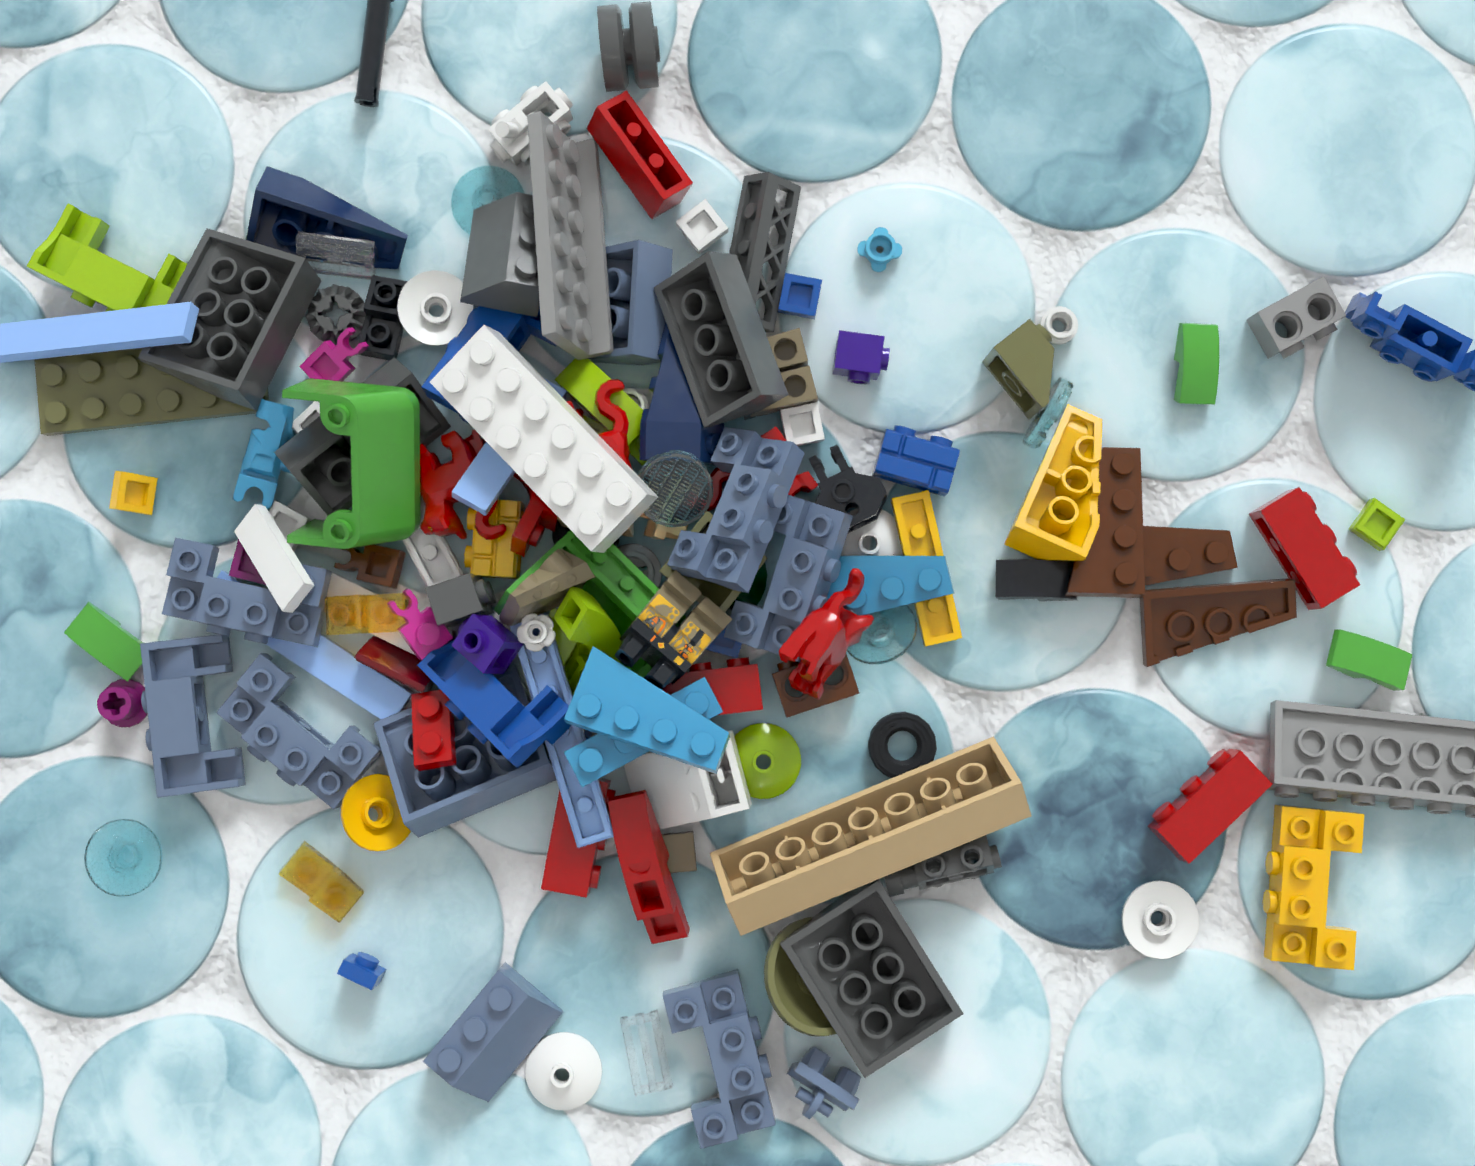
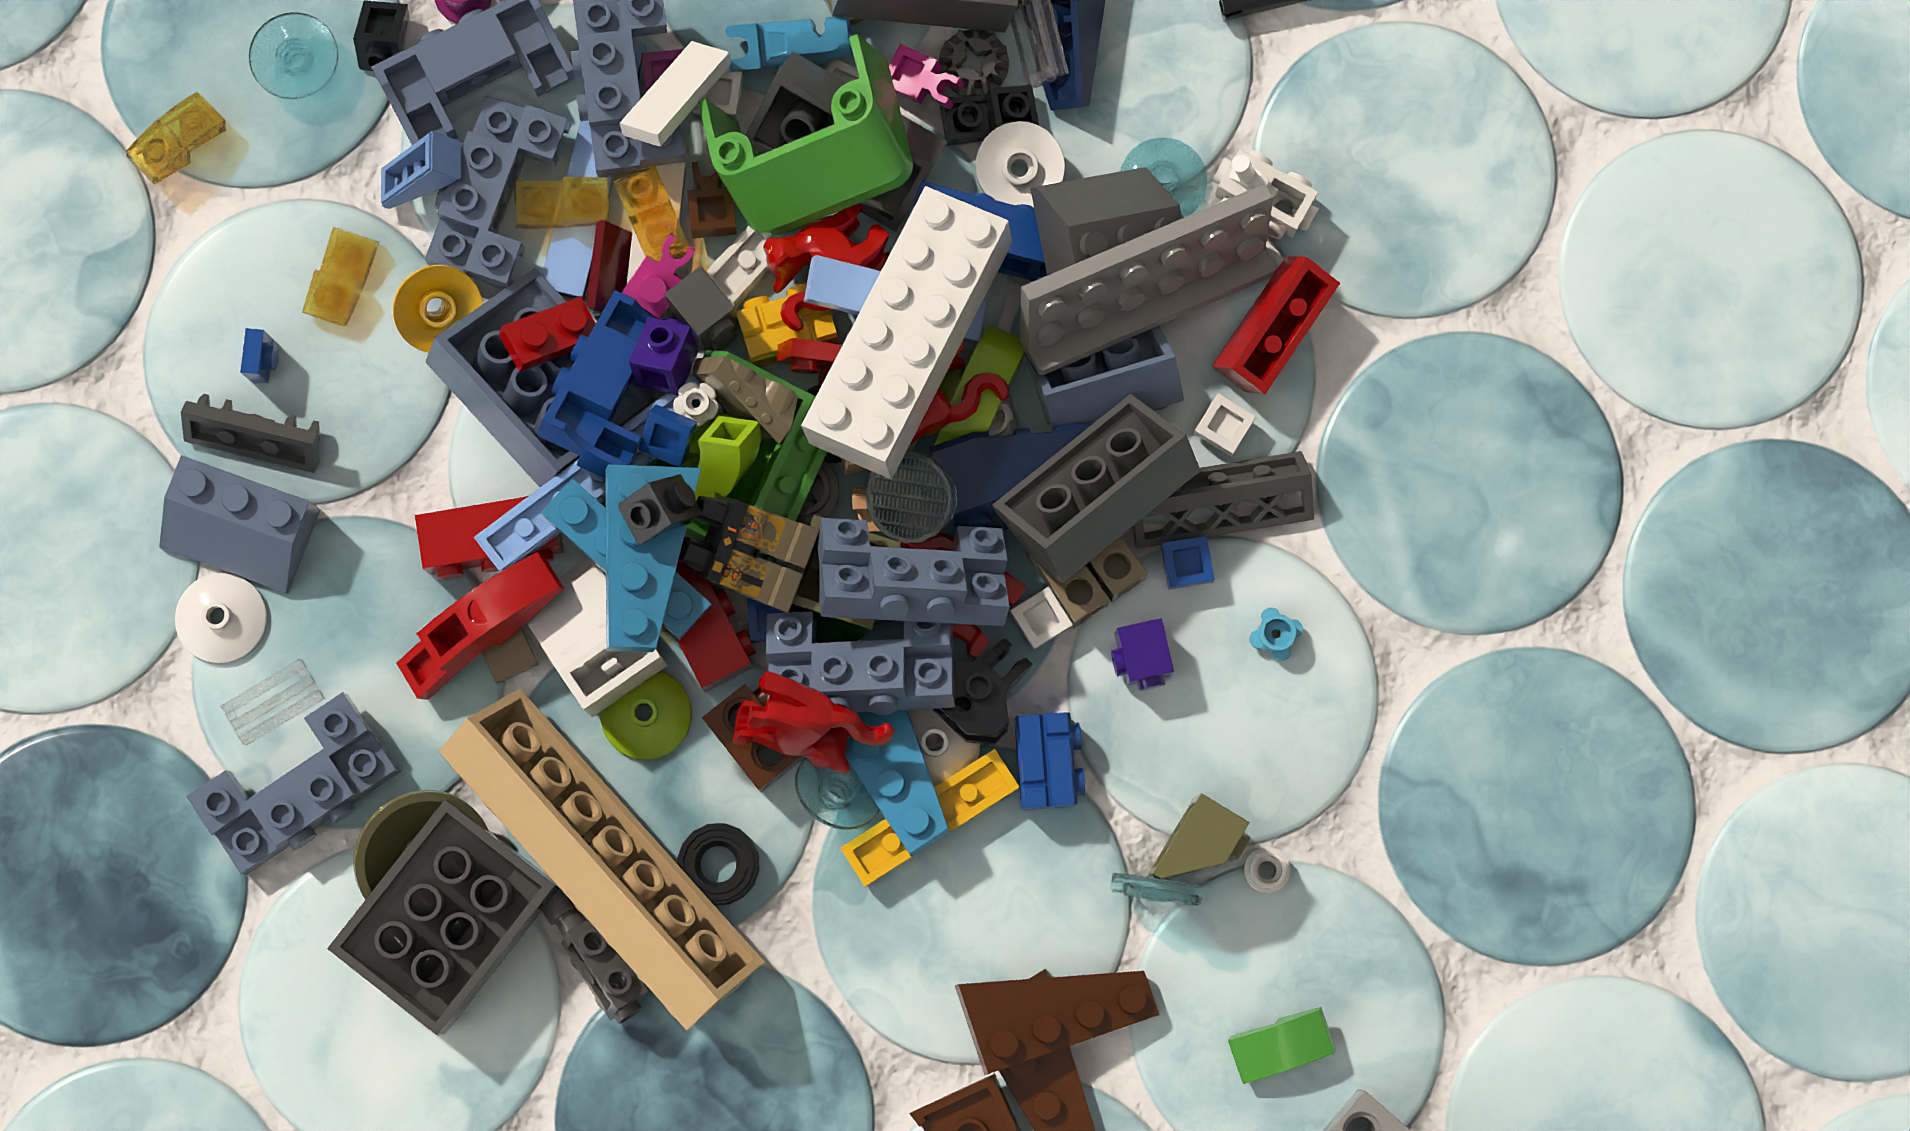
camera: 65 degrees right, 5 degrees down
(130, 780) = (379, 32): none -> black bracket
(155, 982) = (171, 138): none -> clear yellow slope
(258, 781) = (424, 169): none -> medium blue slope
(328, 683) = (561, 203): none -> clear yellow slope
(424, 998) = (251, 434): none -> dark grey plate
(554, 663) = (667, 435): none -> blue plate
(617, 690) = (659, 508): none -> black bracket
(628, 46) = (1391, 267): dark grey wheel -> none
(839, 1092) = (300, 933): sand blue hips -> none
(1033, 579) = (960, 943): black slope -> none
(1062, 500) = (1064, 942): yellow wedge -> none

